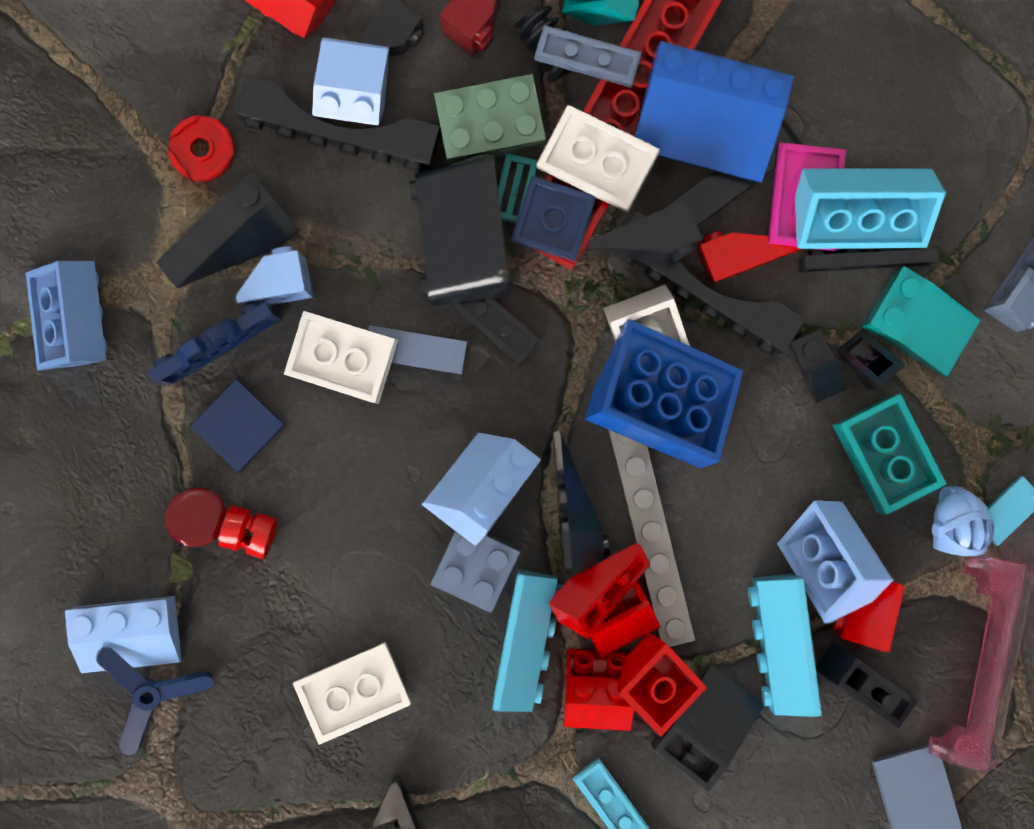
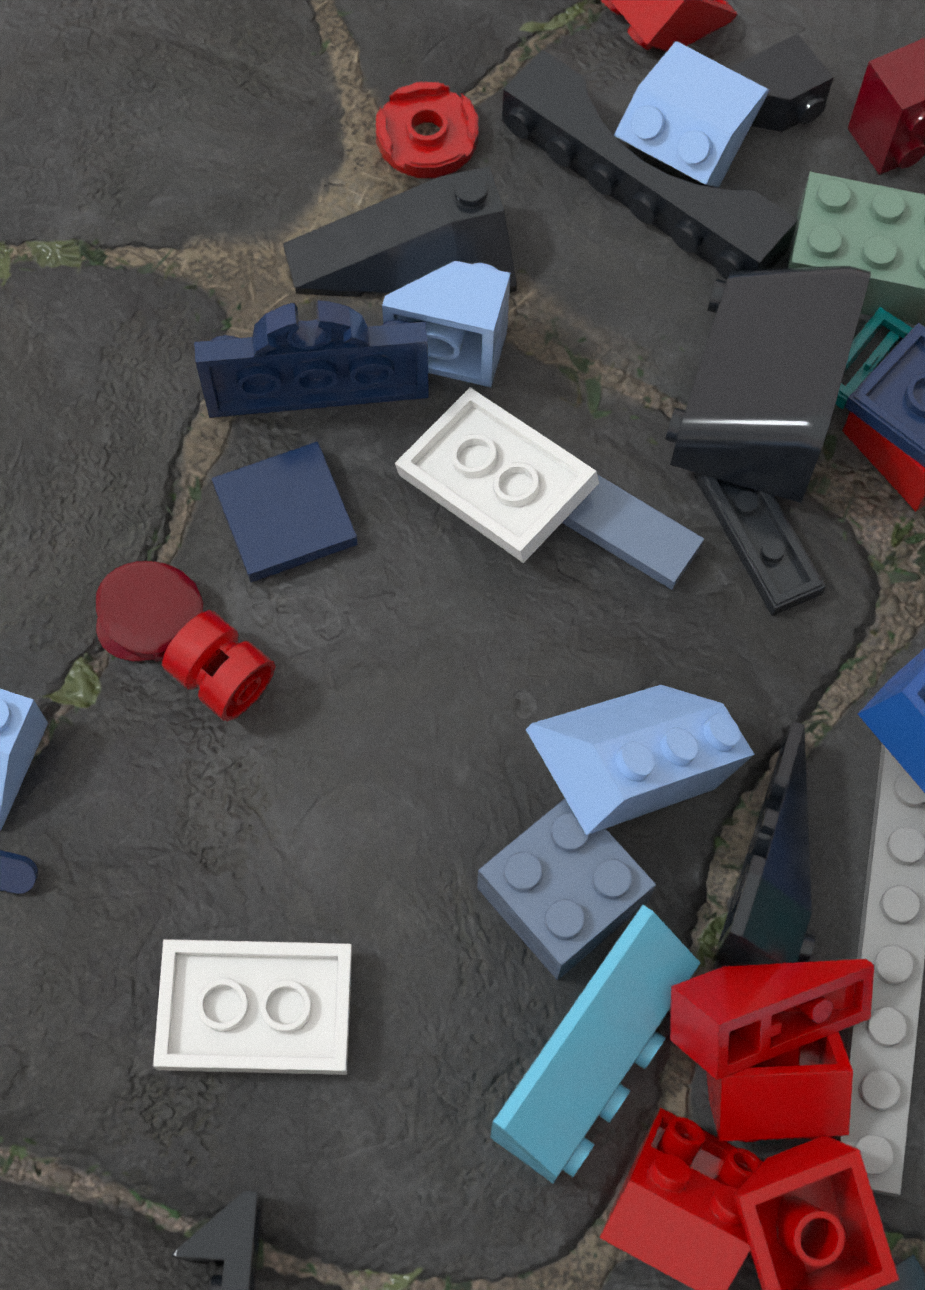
camera: 30 degrees right, 20 degrees down
(66, 314) = (116, 251): medium blue slope -> none

